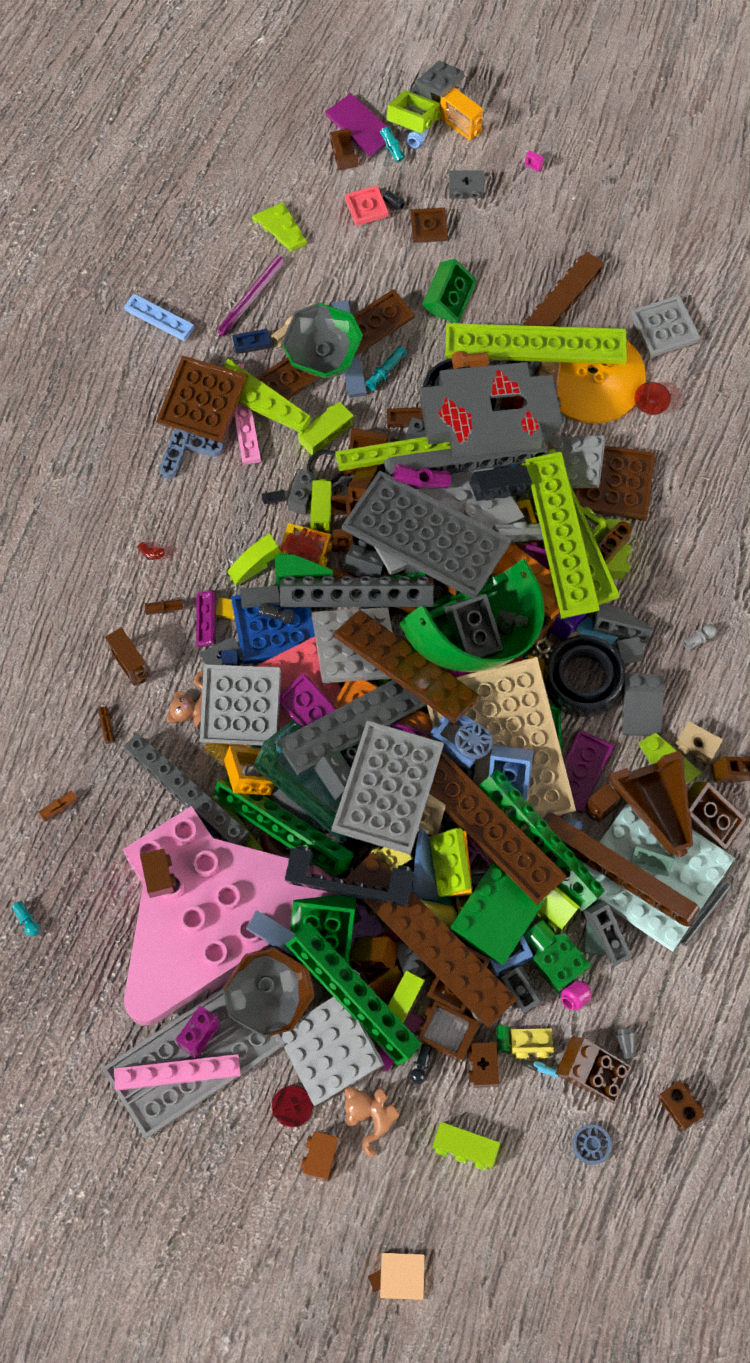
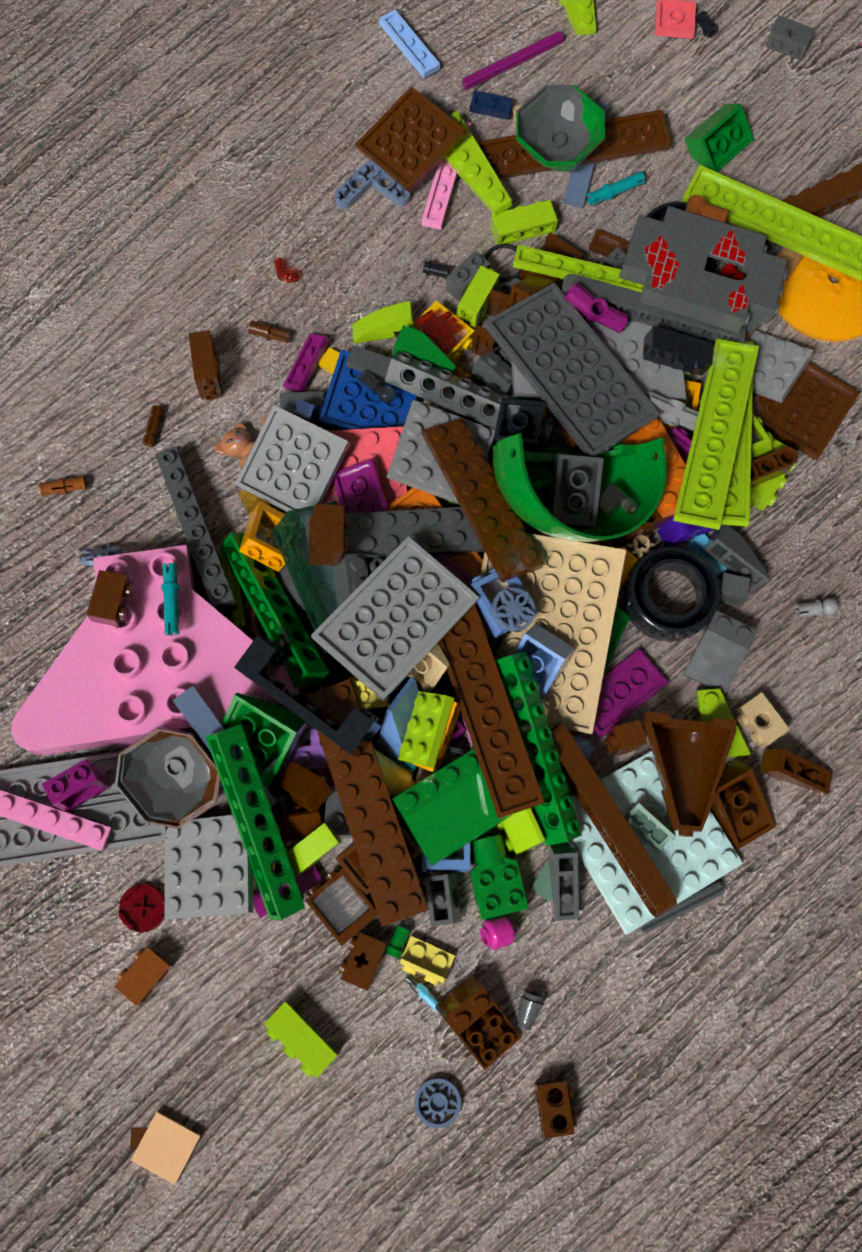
camera: 20 degrees right, 5 degrees up
(115, 848) = (89, 554): none -> sand blue wheel
(204, 851) = (170, 591): none -> teal pin
(305, 747) = (326, 534): none -> reddish brown brick
(361, 1106) = (212, 944): nougat animal -> none
(407, 594) = (522, 418): none -> black slope
(418, 1074) = (288, 938): black pin -> none
(428, 225) = (730, 63): reddish brown plate -> none

